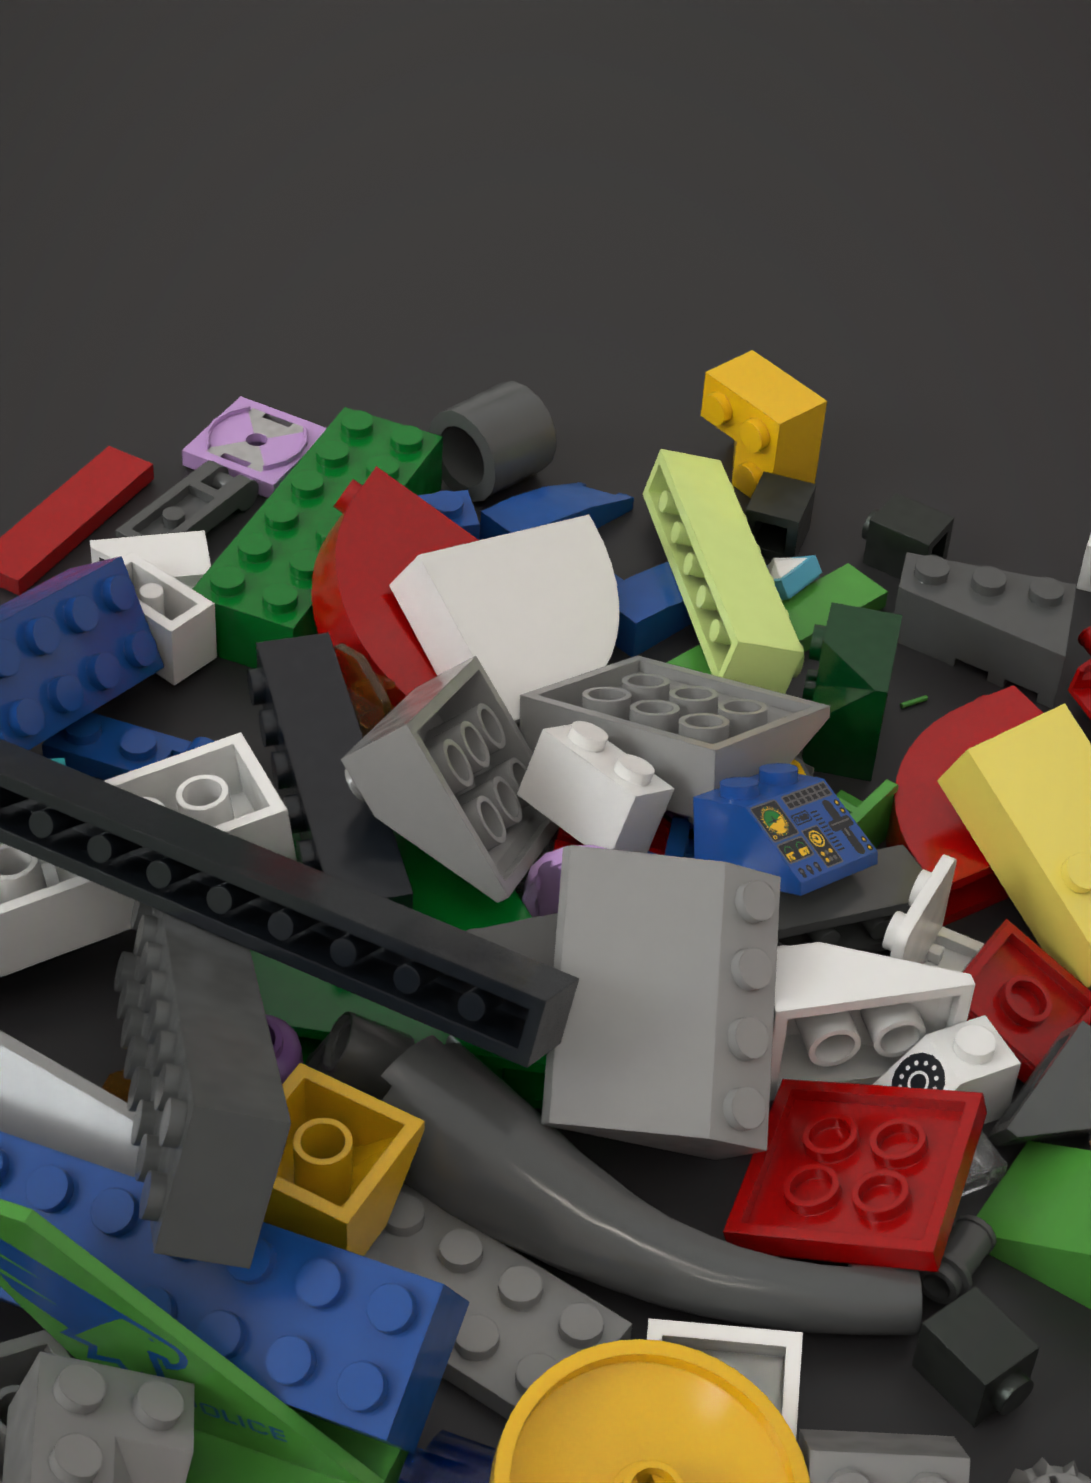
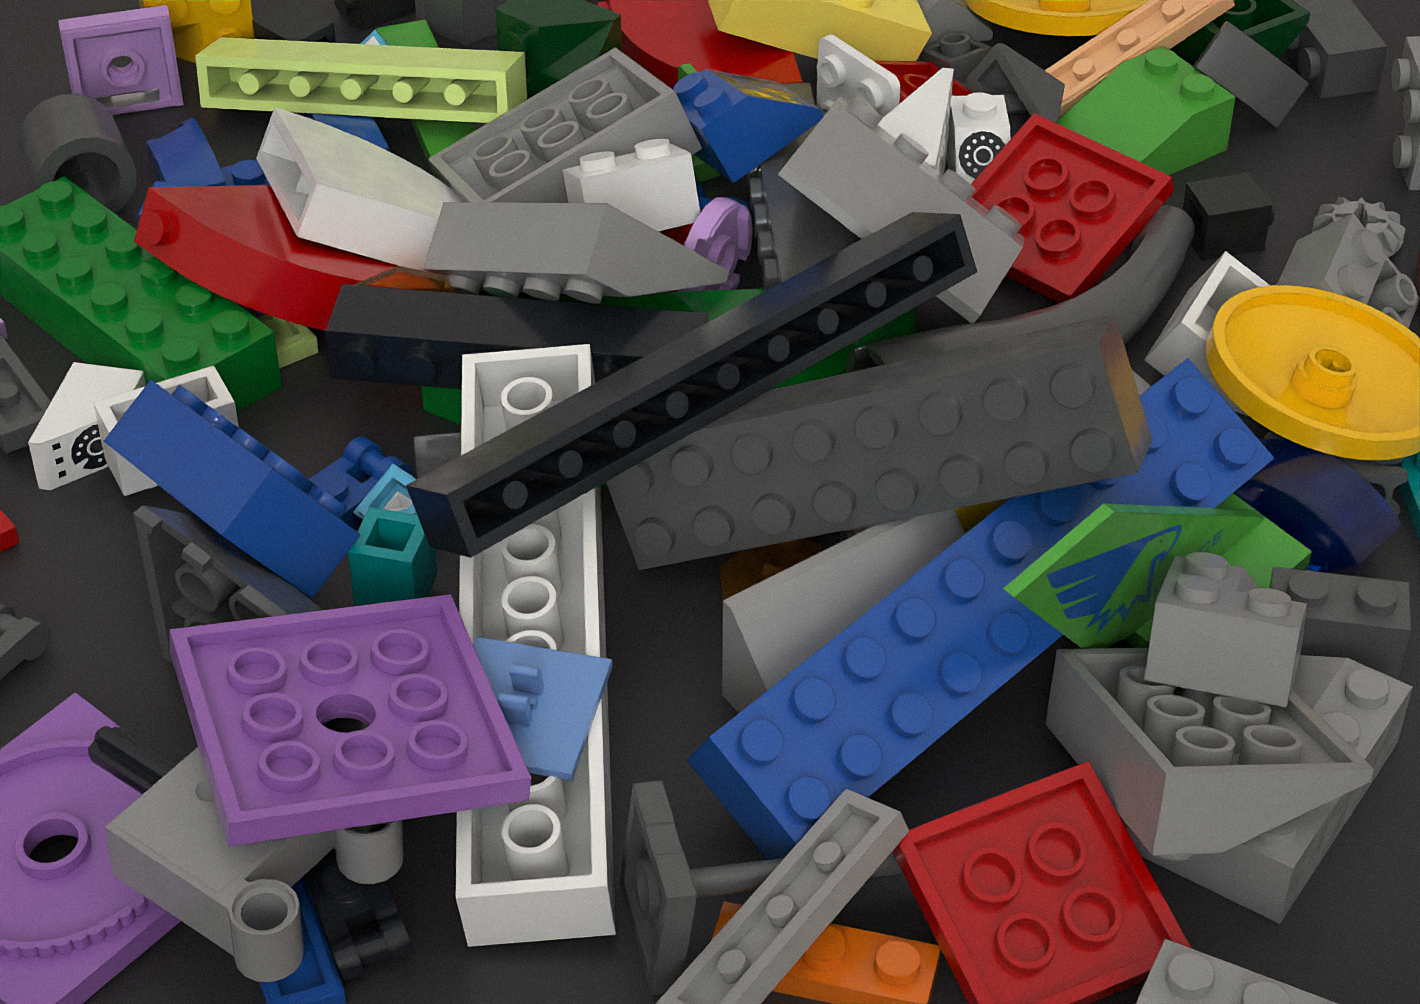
camera: 65 degrees left, 0 degrees up
(639, 410) = (140, 34): none -> lavender piece

